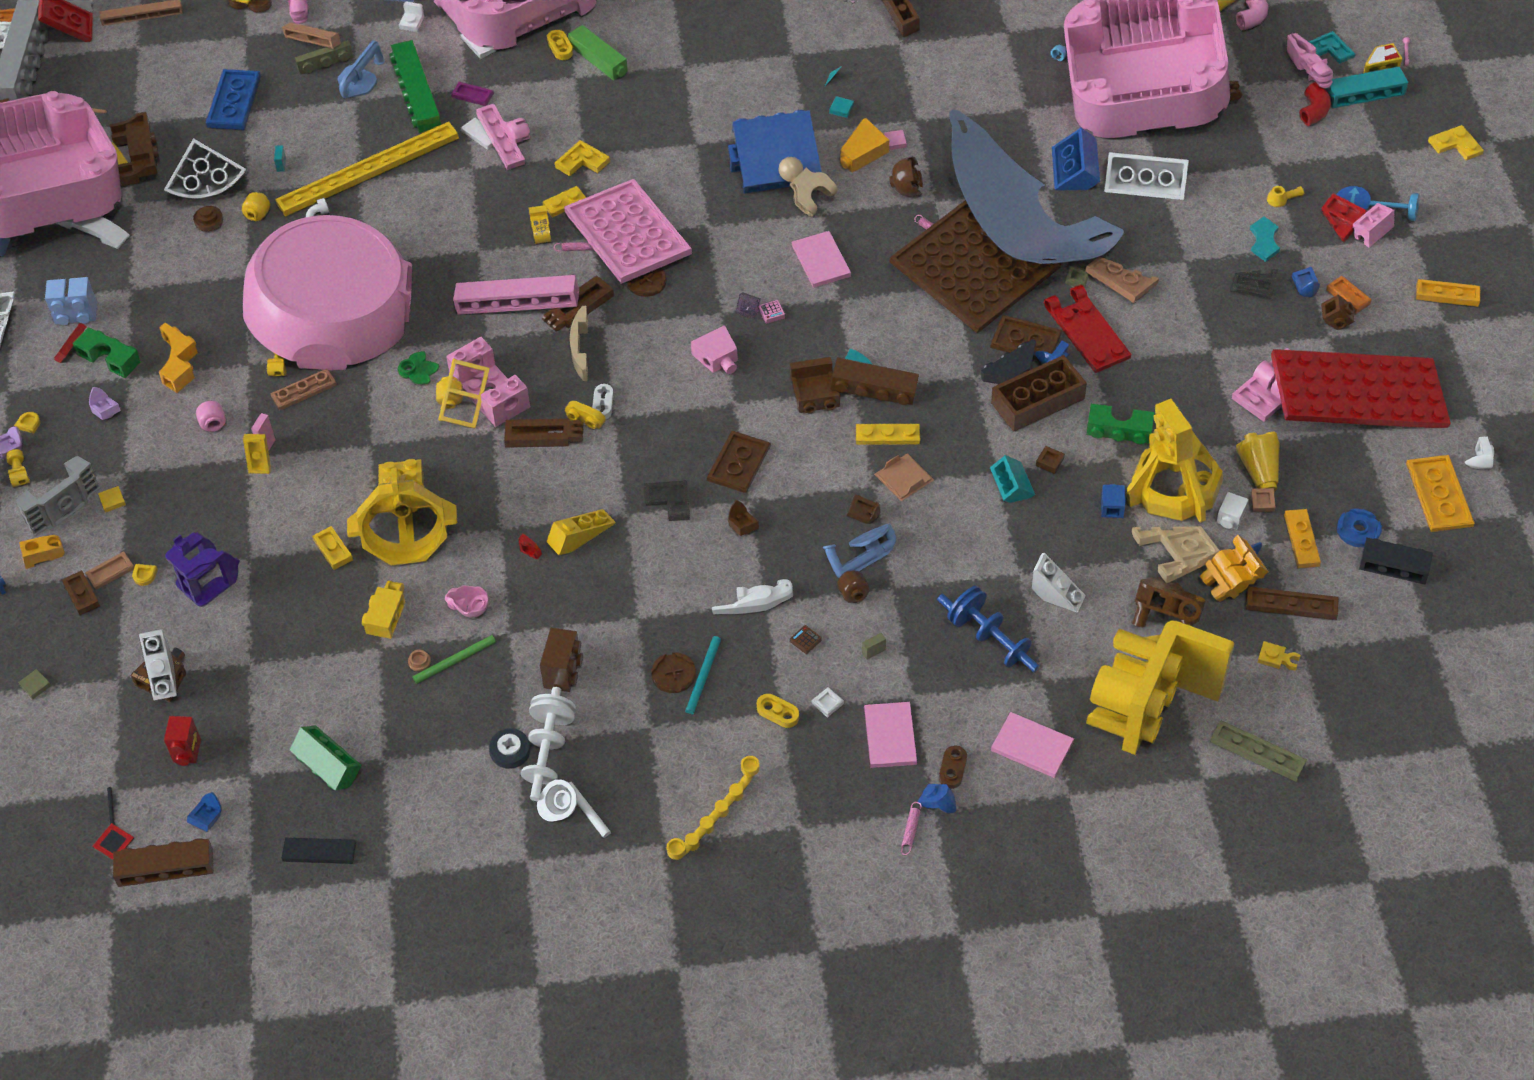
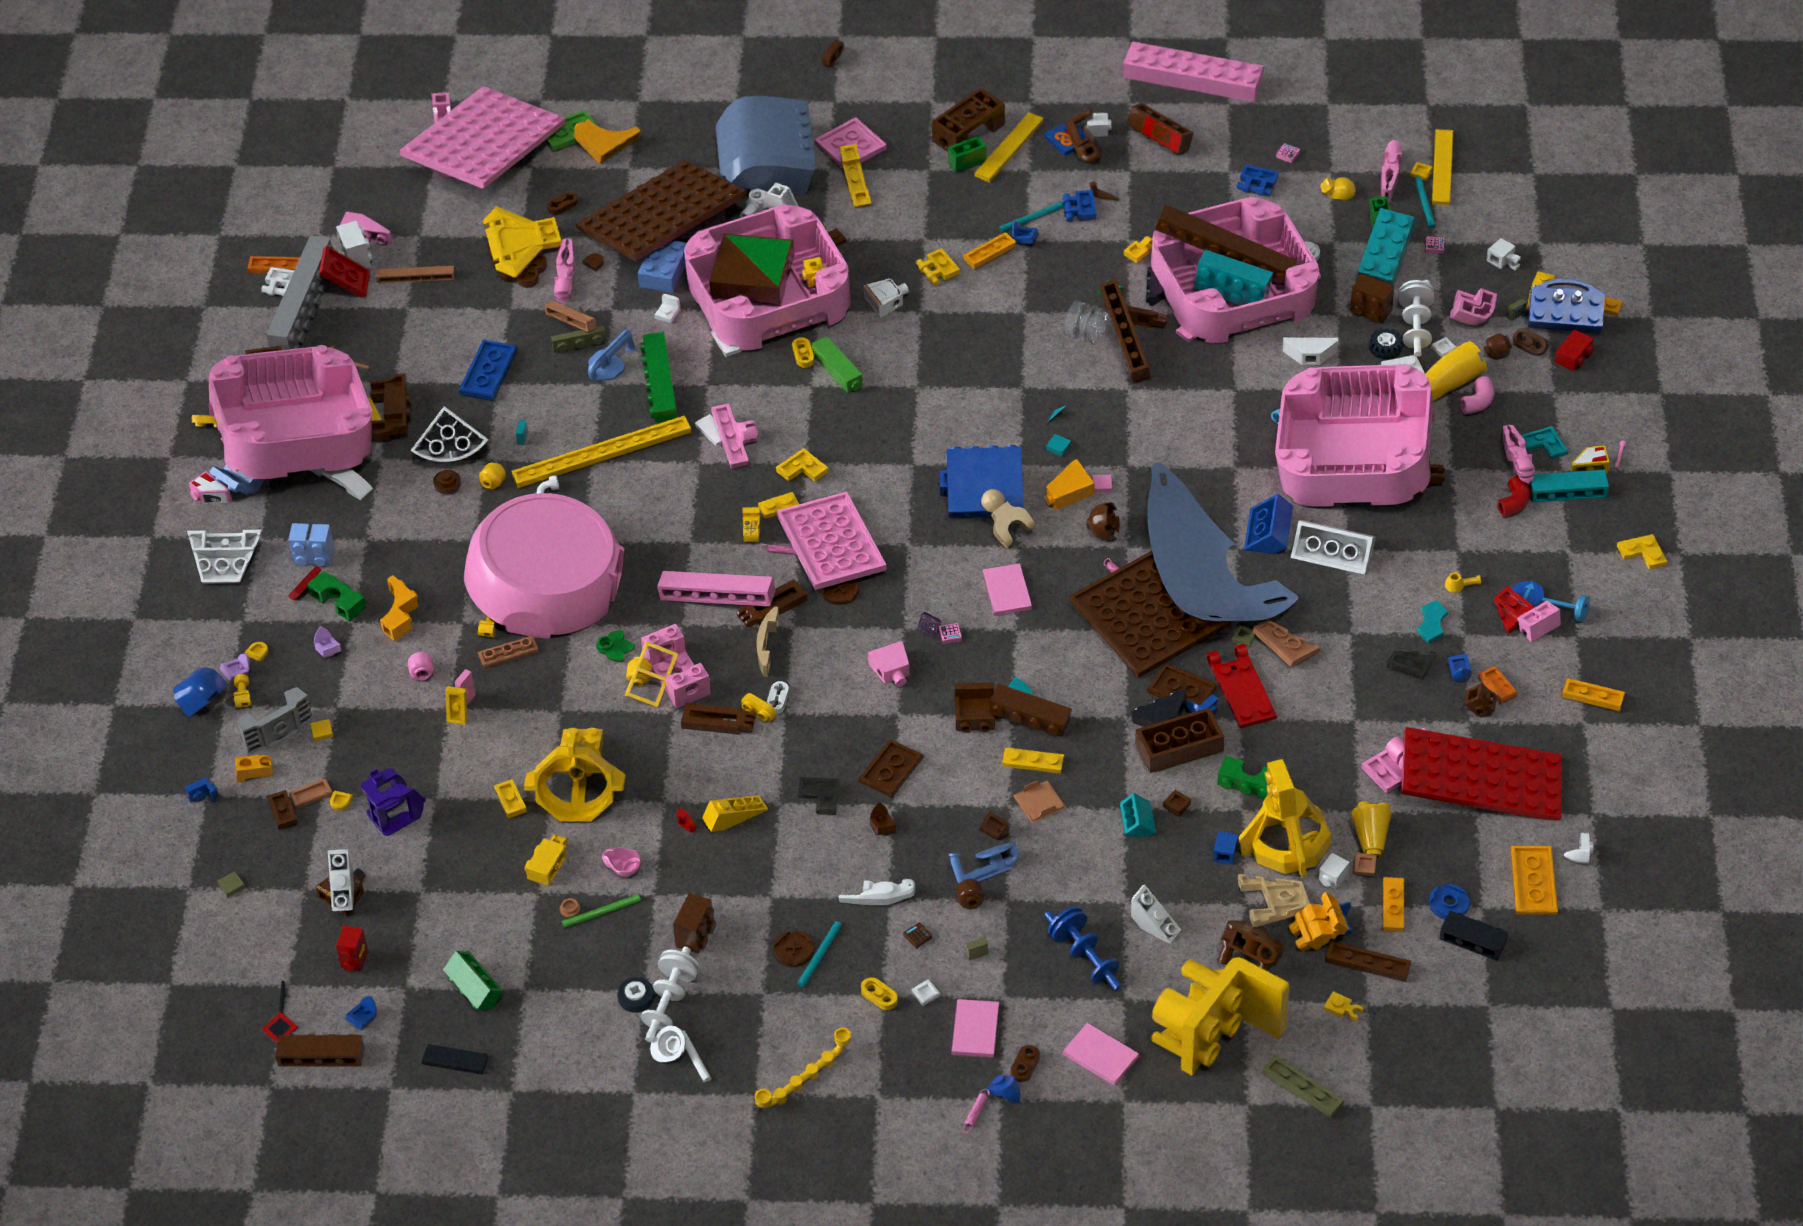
camera: 10 degrees right, 5 degrees down
(472, 93) = (711, 390): magenta tile -> none

